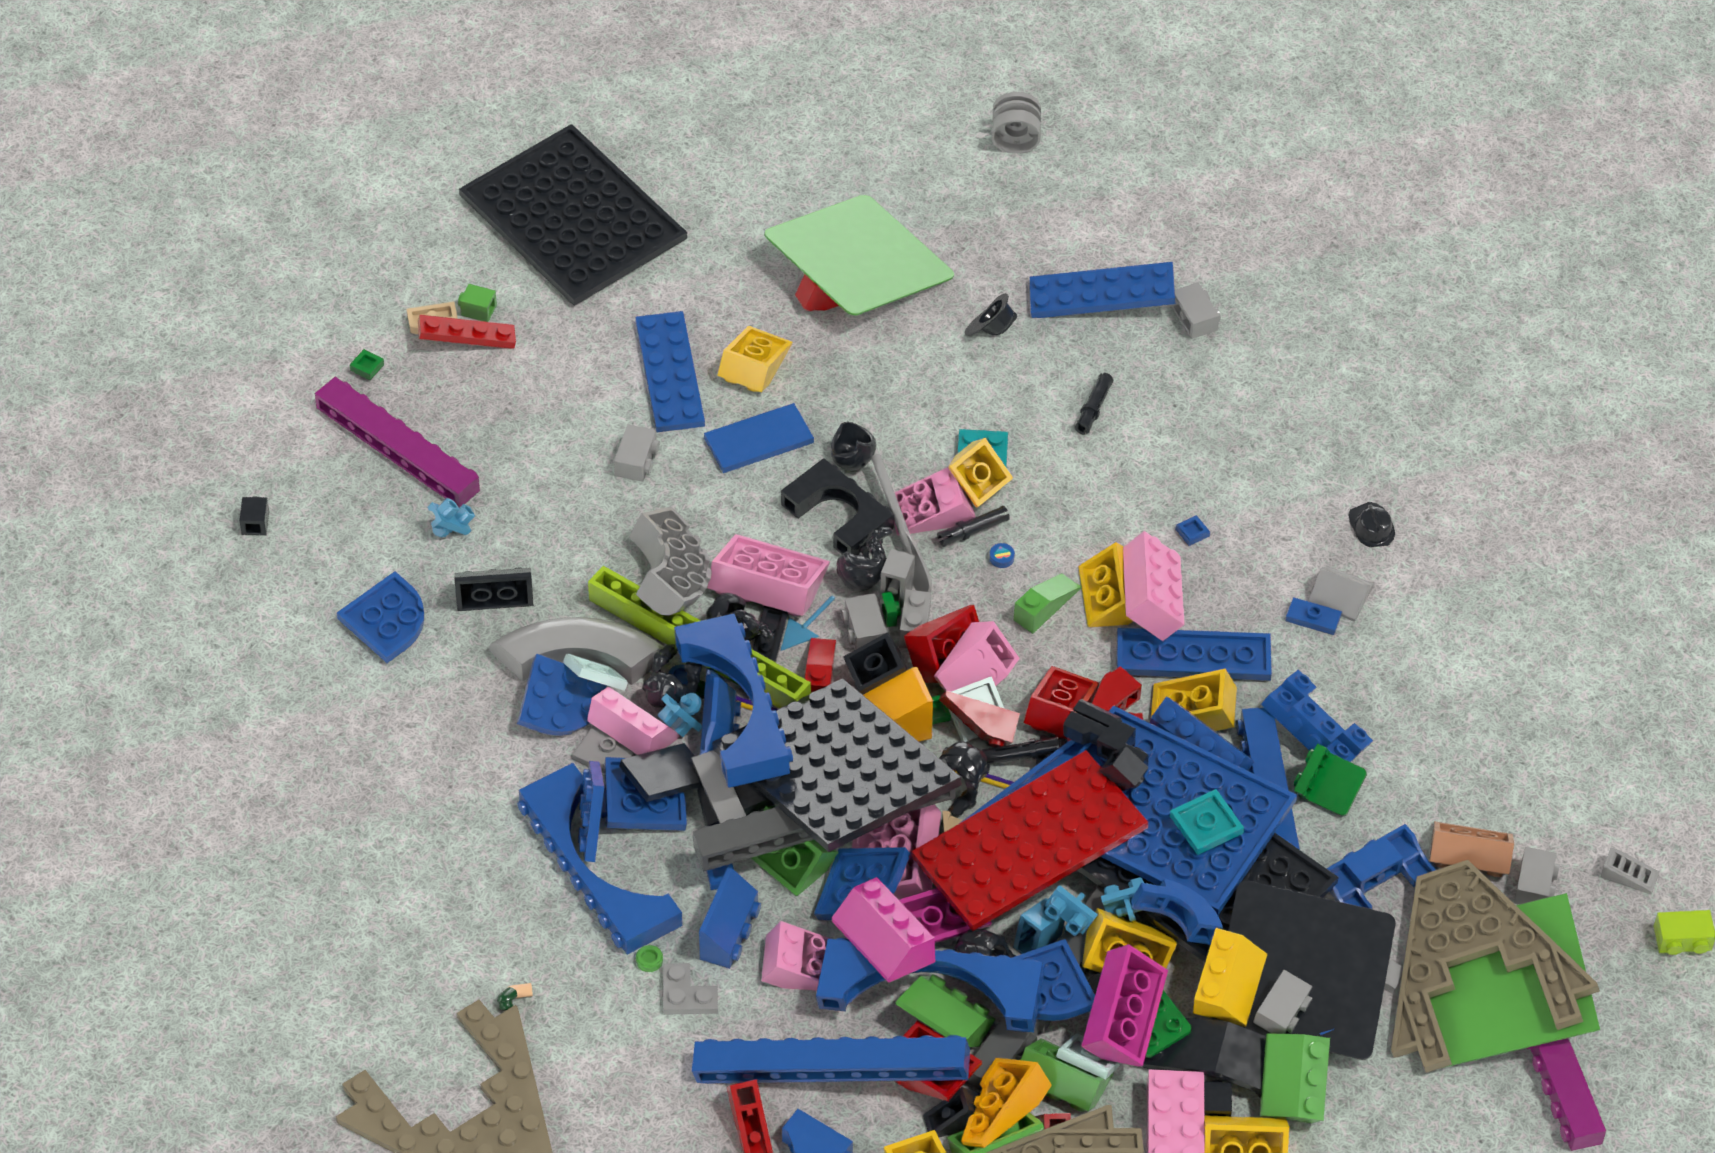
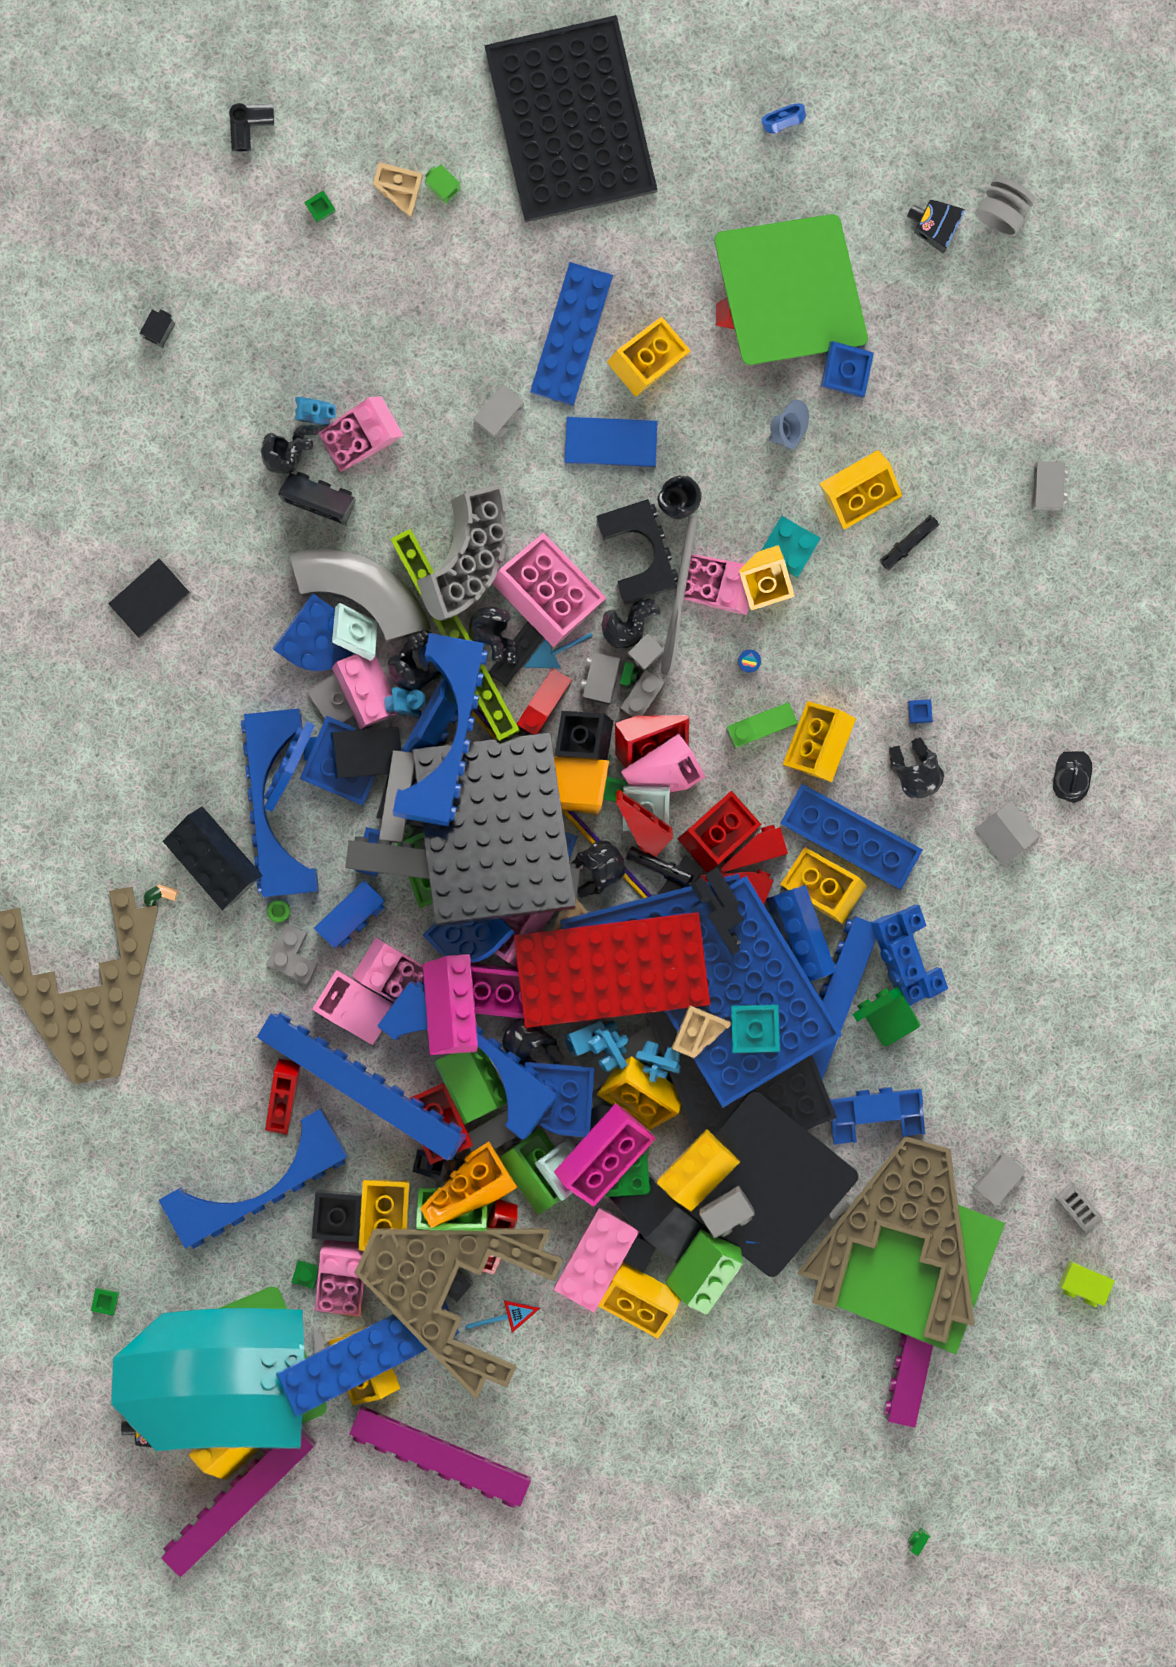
camera: 30 degrees right, 35 degrees up
(253, 327) = (255, 116): none -> black piece
(362, 742) = (149, 598): none -> black tile
(386, 616) = (220, 483): blue plate -> none
(397, 441) = (307, 305): magenta brick -> none
(441, 568) = (283, 456): none -> black hair
(466, 331) = (416, 214): red plate -> none
(506, 521) = (360, 433): none -> bright pink slope
(554, 927) = (212, 858): none -> black brick
(777, 1004) = (352, 1006): none -> bright pink slope
(779, 137) = (783, 118): none -> blue plate
(922, 357) = (790, 425): none -> sand blue piece
(949, 296) = (847, 369): none -> blue tile
(961, 162) = (936, 222): none -> black torso
(963, 530) = (740, 621): black pin -> none
(994, 319) = (870, 411): black piece -> none
(1022, 379) = (861, 489): none -> yellow slope
(1102, 290) = (980, 428): blue plate -> none
(1124, 769) = (715, 950): black brick -> none
(1151, 849) = (698, 1031): none -> tan wing
(1153, 585) = (847, 767): bright pink brick -> none
(1182, 905) = (698, 1094): blue arch -> none
(1228, 572) = (920, 779): none -> black hair
(1313, 616) = (970, 845): blue plate -> none
(1483, 848) = (967, 1126): nougat slope -> none

